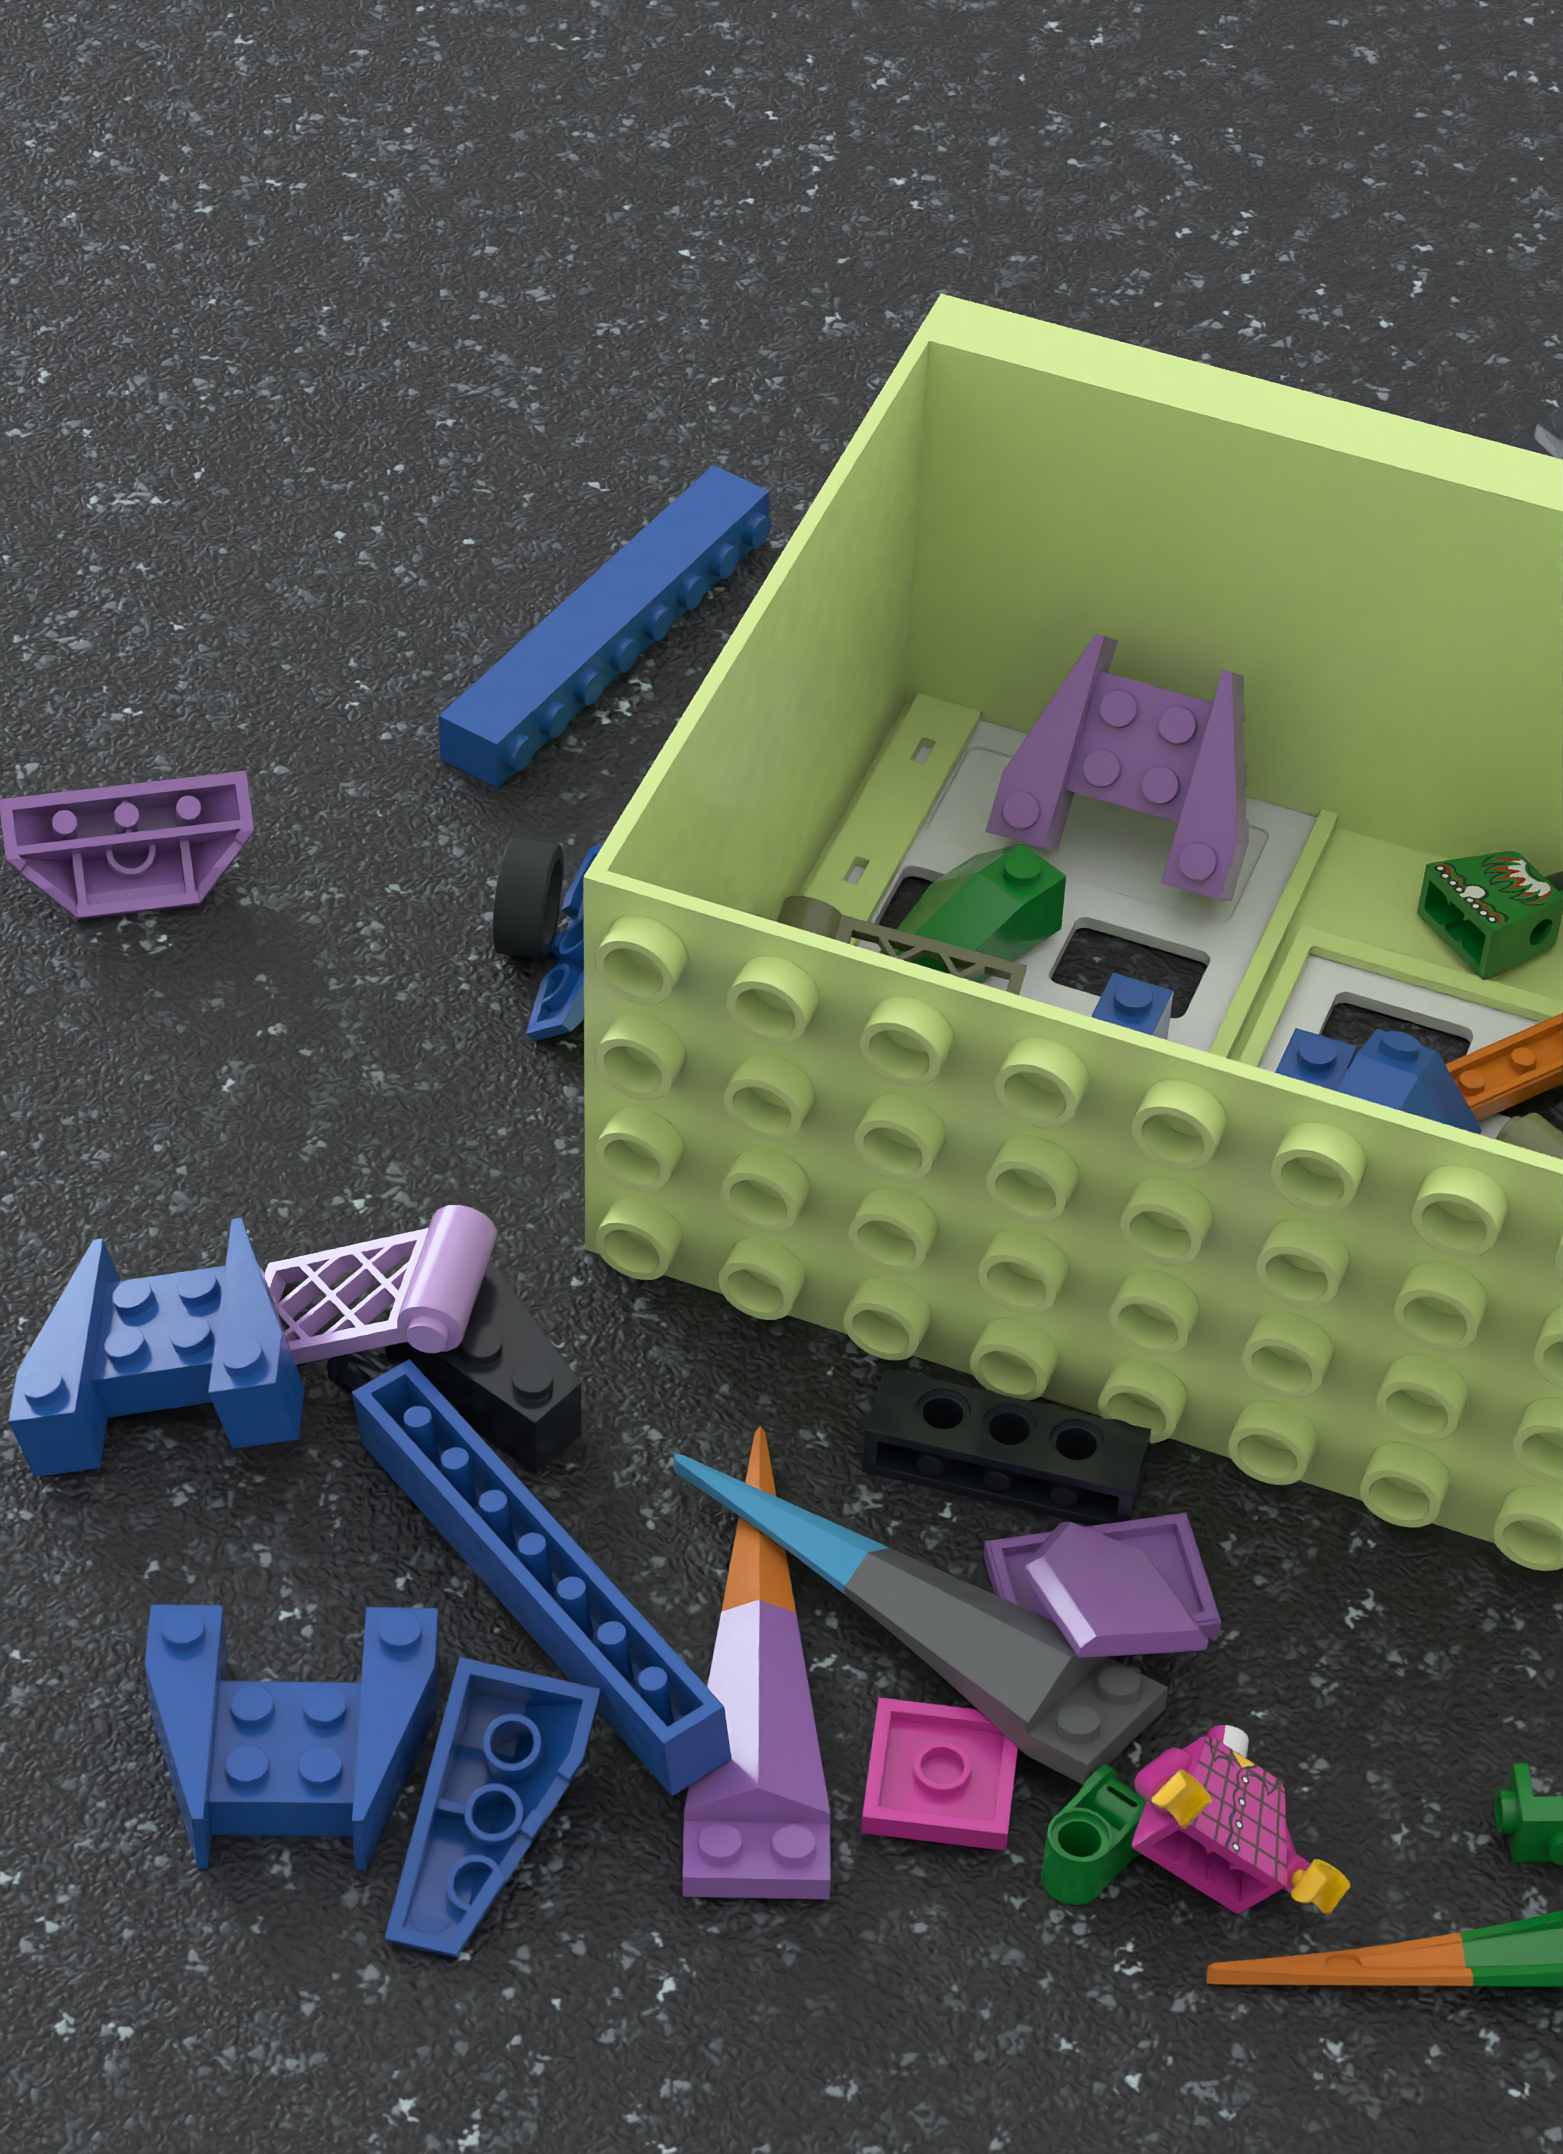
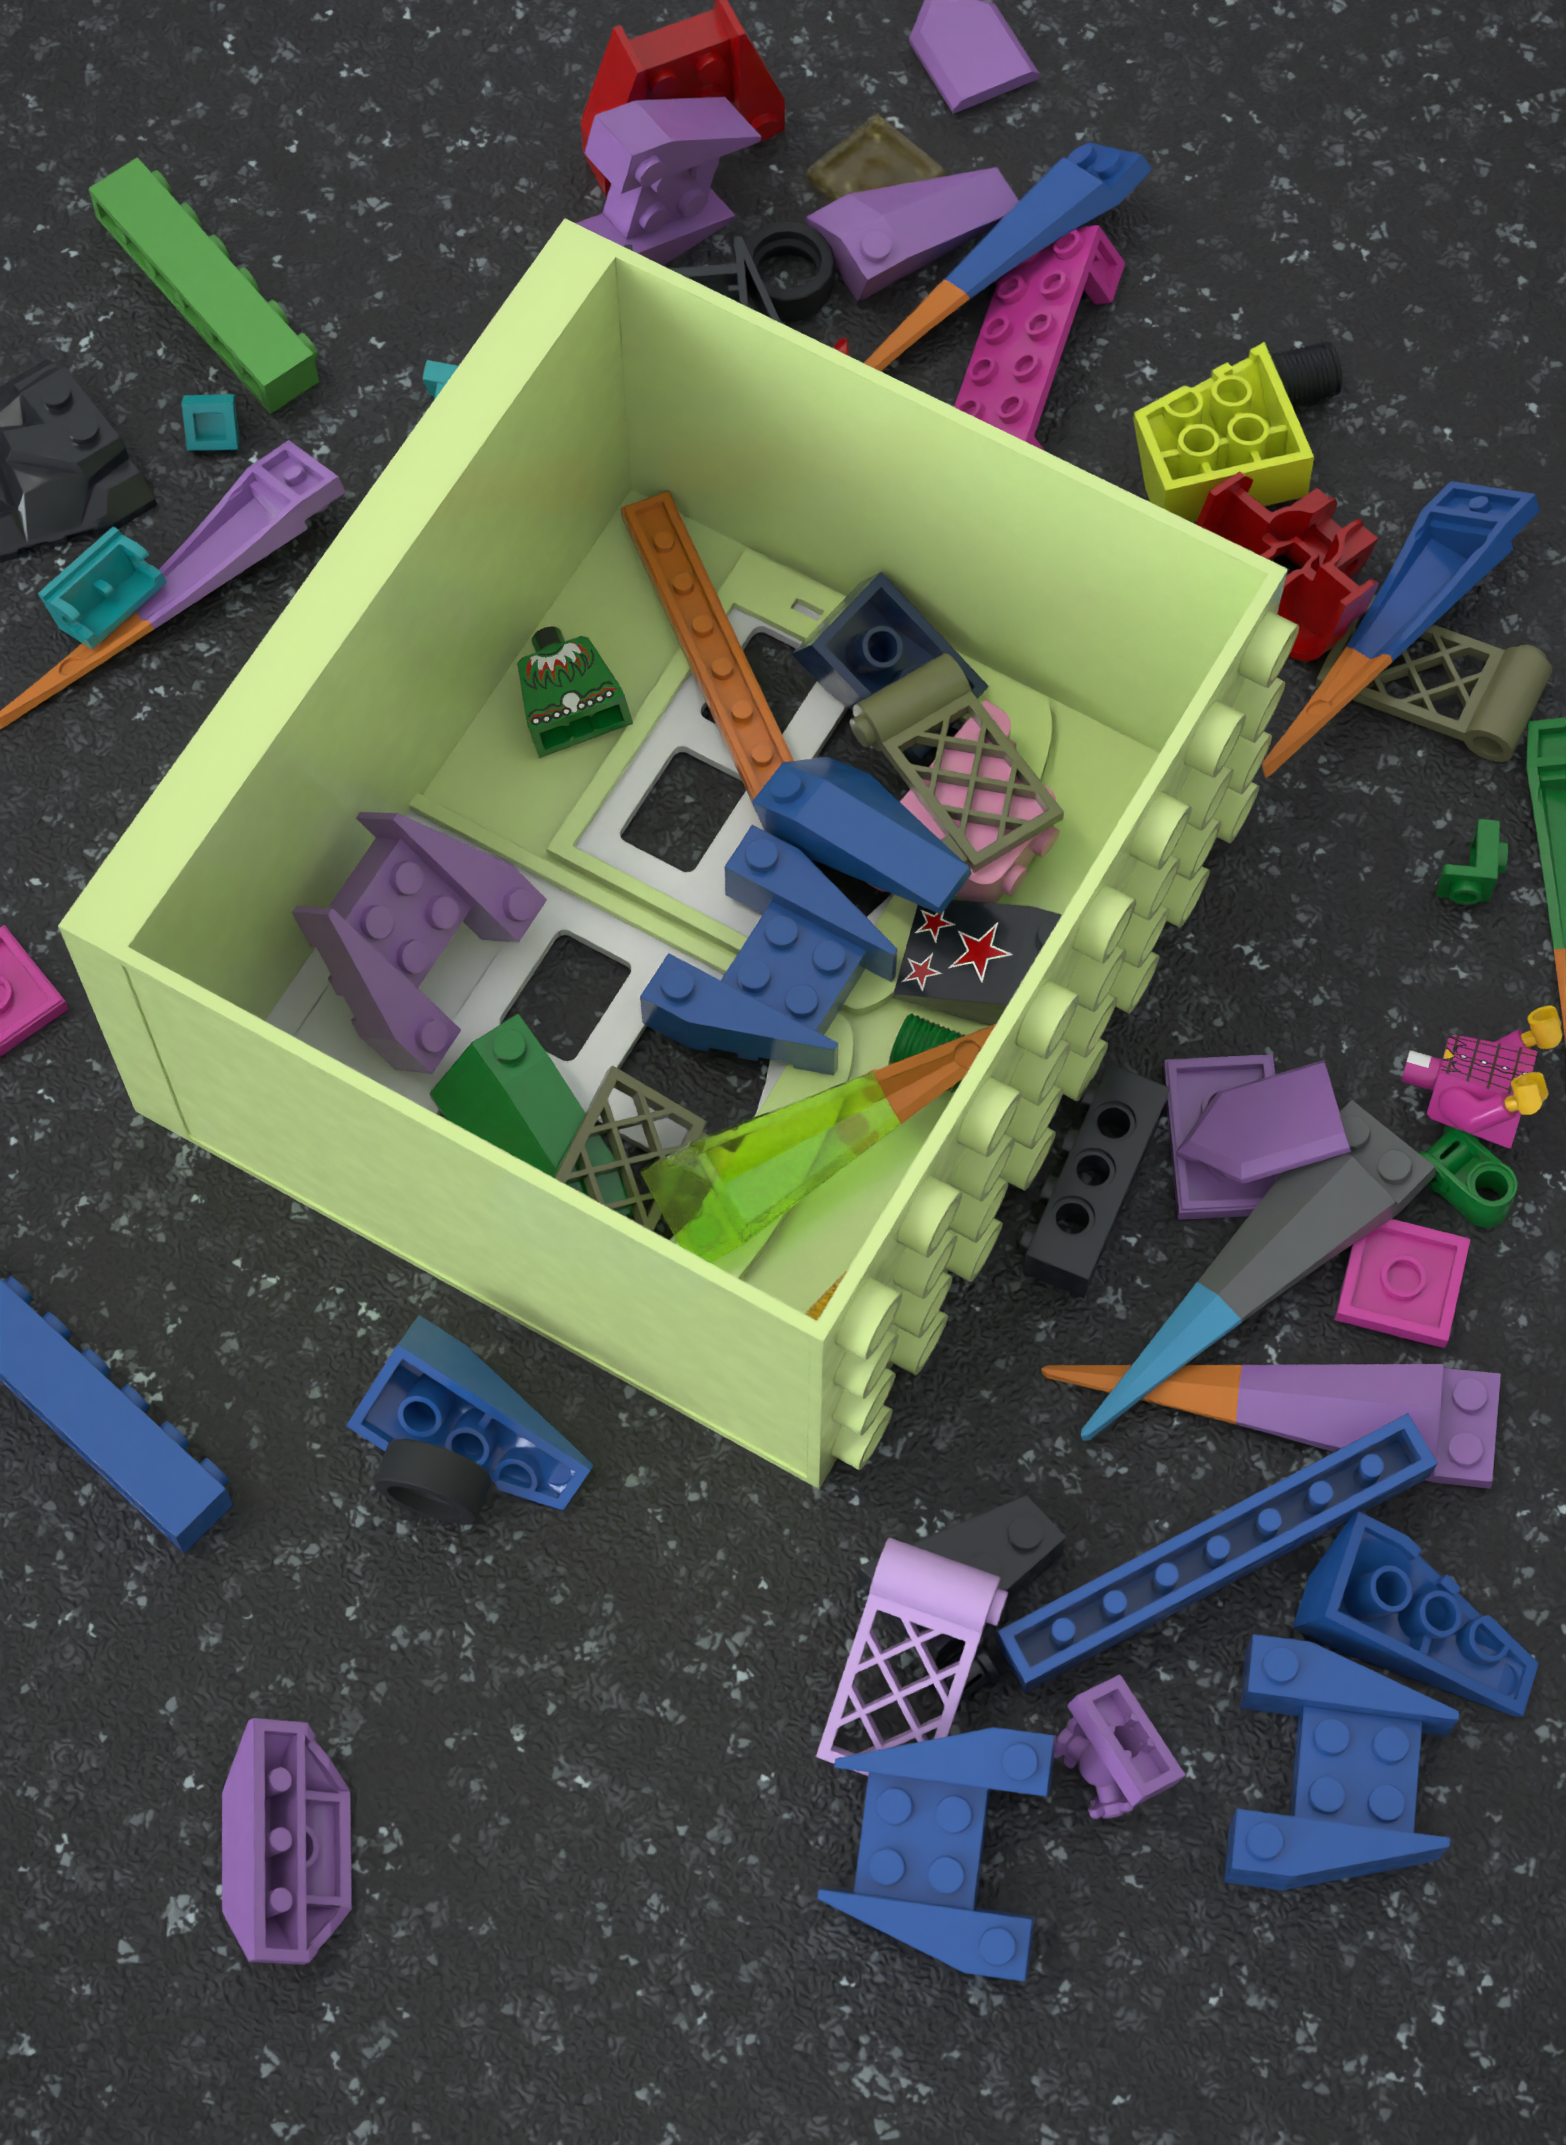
camera: 80 degrees left, 20 degrees up
(284, 1484) = (1116, 1749): none -> medium lavender piece

